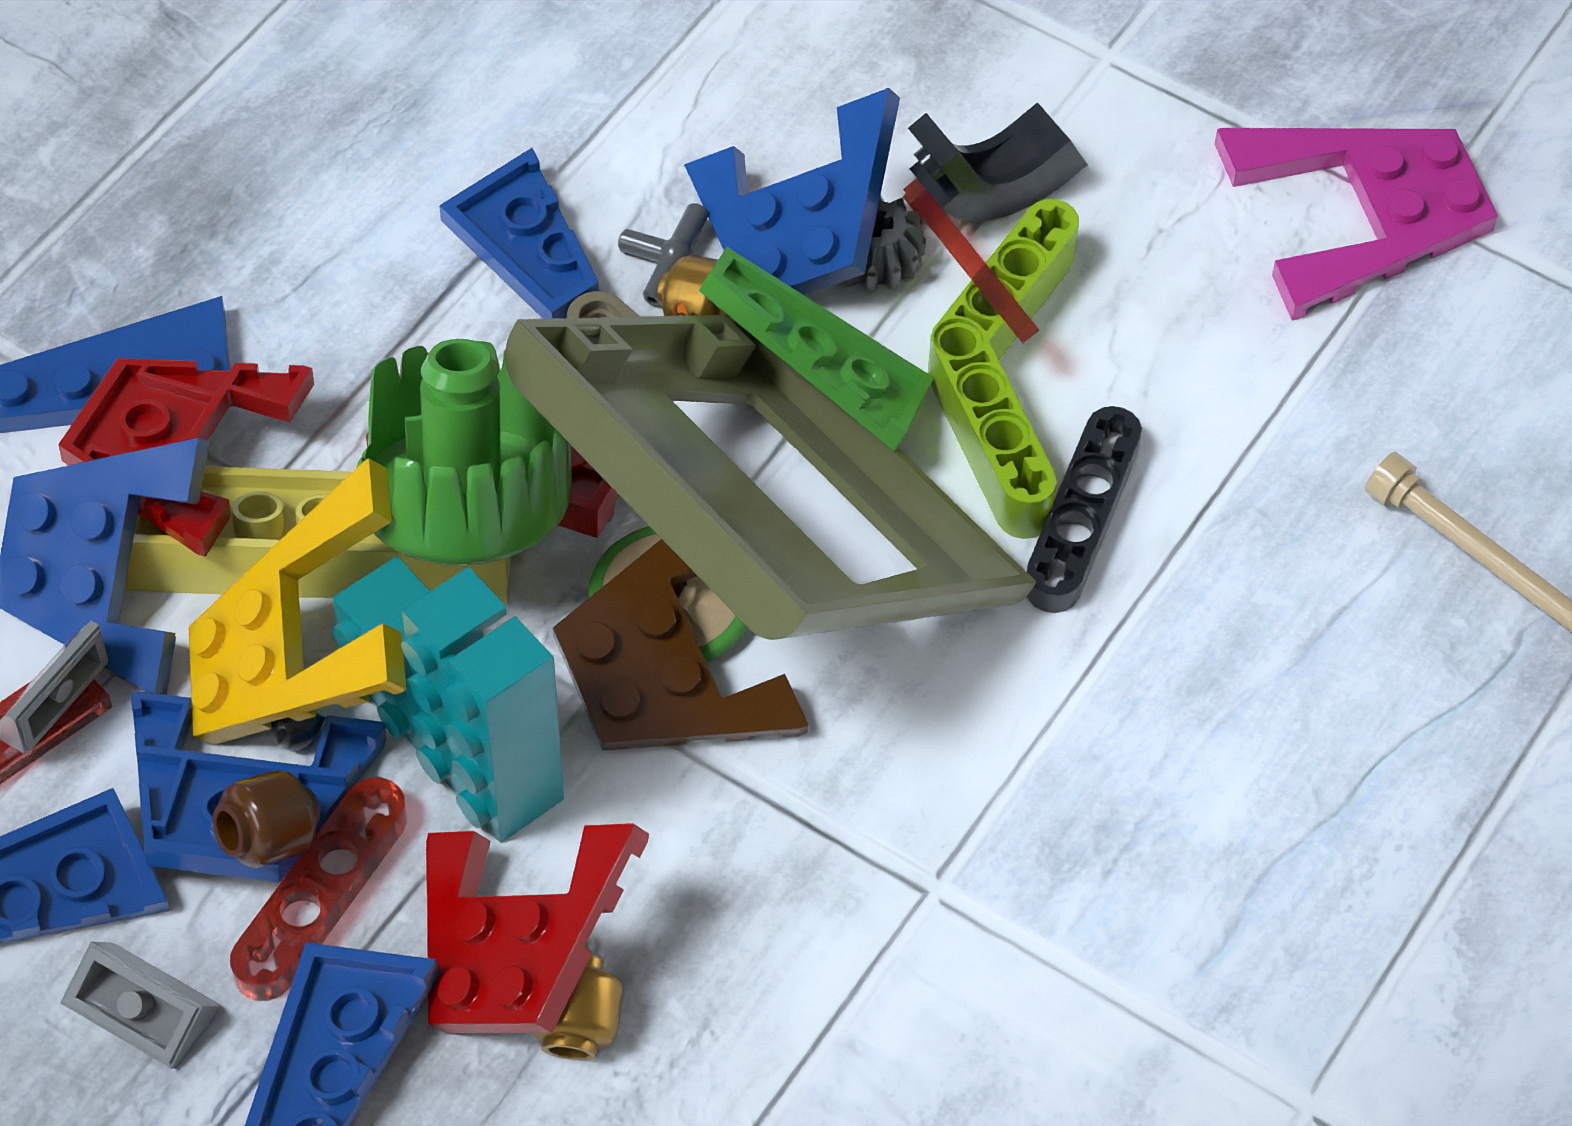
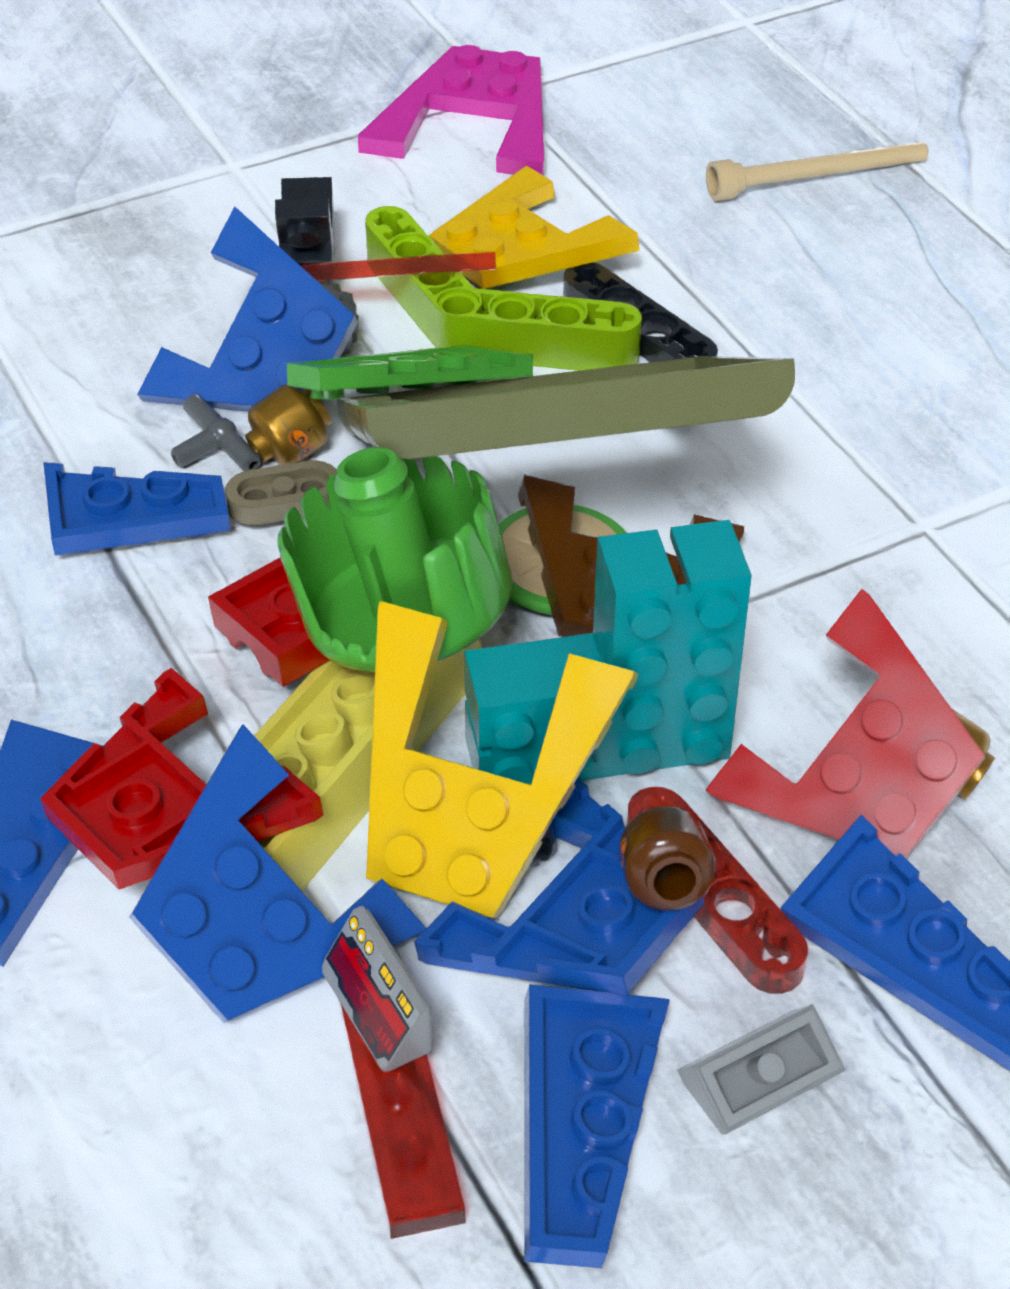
camera: 60 degrees left, 10 degrees down
(1127, 328) = (523, 240): none -> yellow wing

